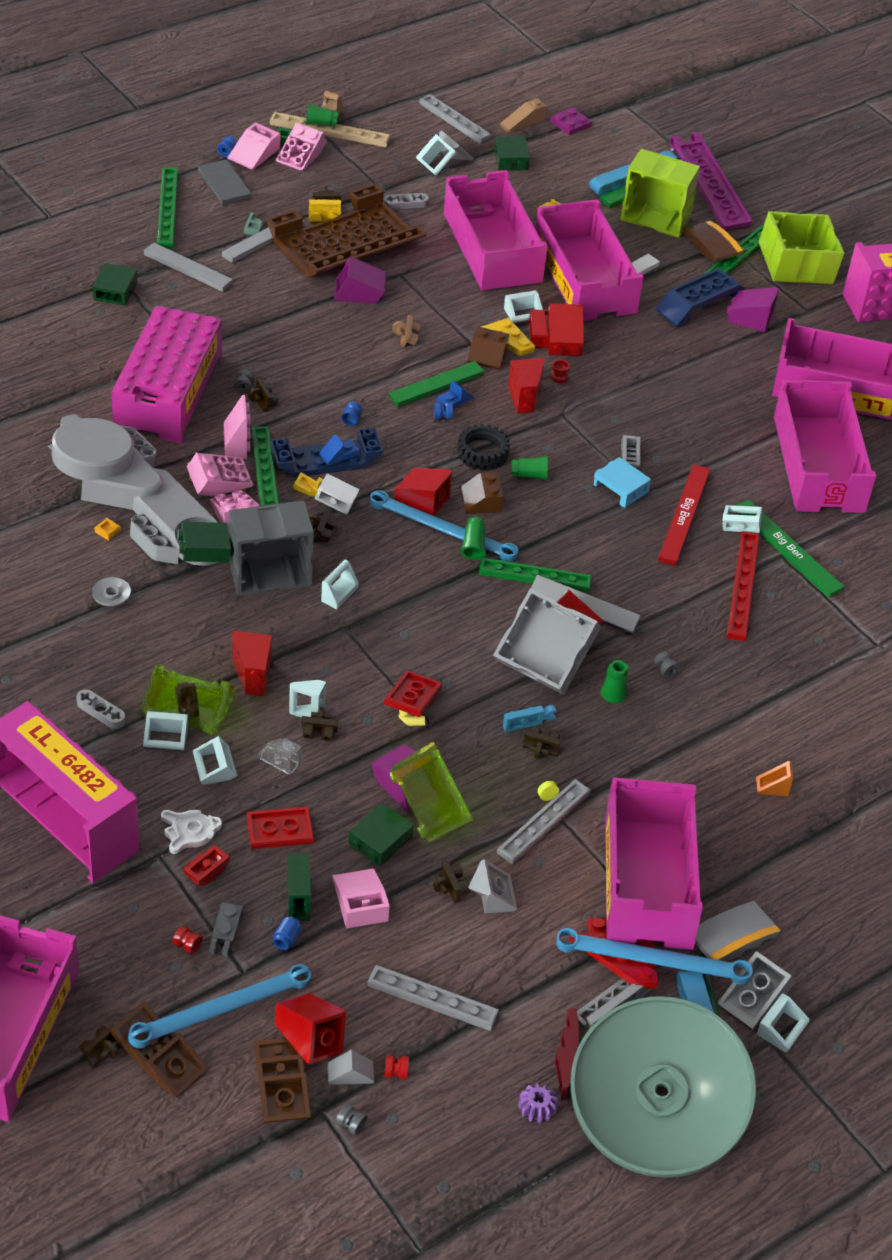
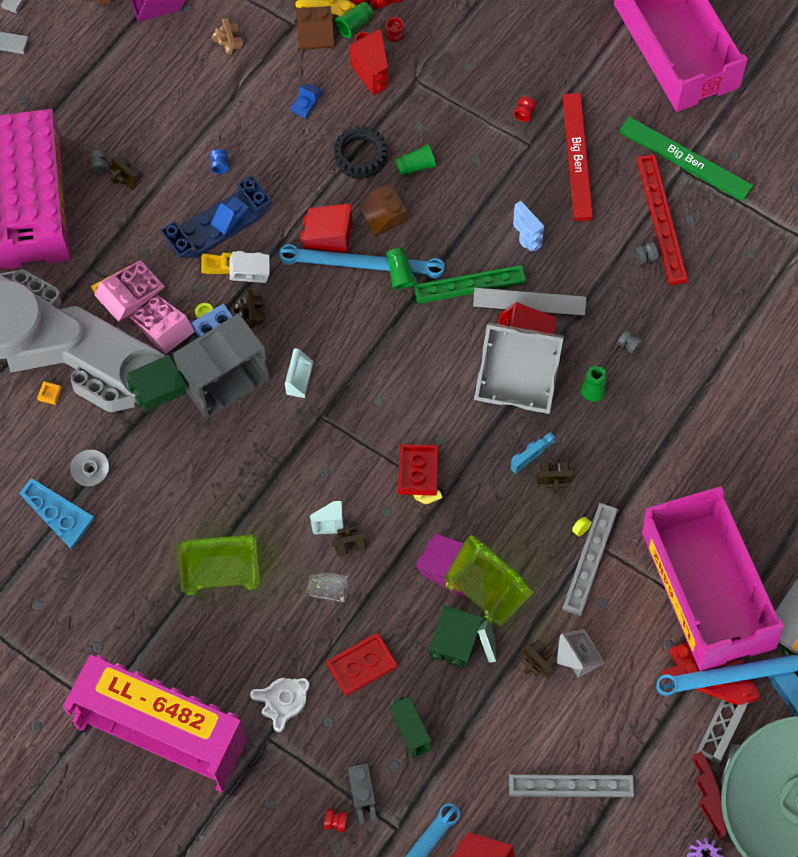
camera: 15 degrees left, 20 degrees up
(64, 616) = (61, 515): none -> dark azure wing
(105, 716) = (146, 610): light grey beam -> none
(166, 723) = (211, 594): light aqua tile -> none
(187, 699) = (220, 567): dark brown hips -> none
(207, 866) = (315, 735): red slope -> none
(226, 765) = (280, 613): light aqua tile -> none
(236, 430) = (123, 232): bright pink slope -> none
(252, 660) = (259, 497): red slope -> none
(264, 466) = (169, 267): green tile -> none
(287, 933) = (419, 776): blue brick -> none
(361, 898) = (466, 710): bright pink slope -> none
(411, 848) = (488, 640): none -> sand green tile
(435, 384) = (282, 90): green tile -> none
(443, 410) = (304, 122): blue wheel -> none
(526, 351) = (353, 19): none -> green plant
(610, 545) = (529, 226): none -> light blue plate
(623, 480) = (506, 141): medium azure panel -> none
(631, 441) = (499, 88): light grey slope -> none
(651, 463) = (525, 107): none -> red wheel
(714, 603) = (645, 253): none -> dark grey wheel
(741, 523) = (636, 149): light aqua tile -> none
(776, 781) = (775, 432): orange slope -> none

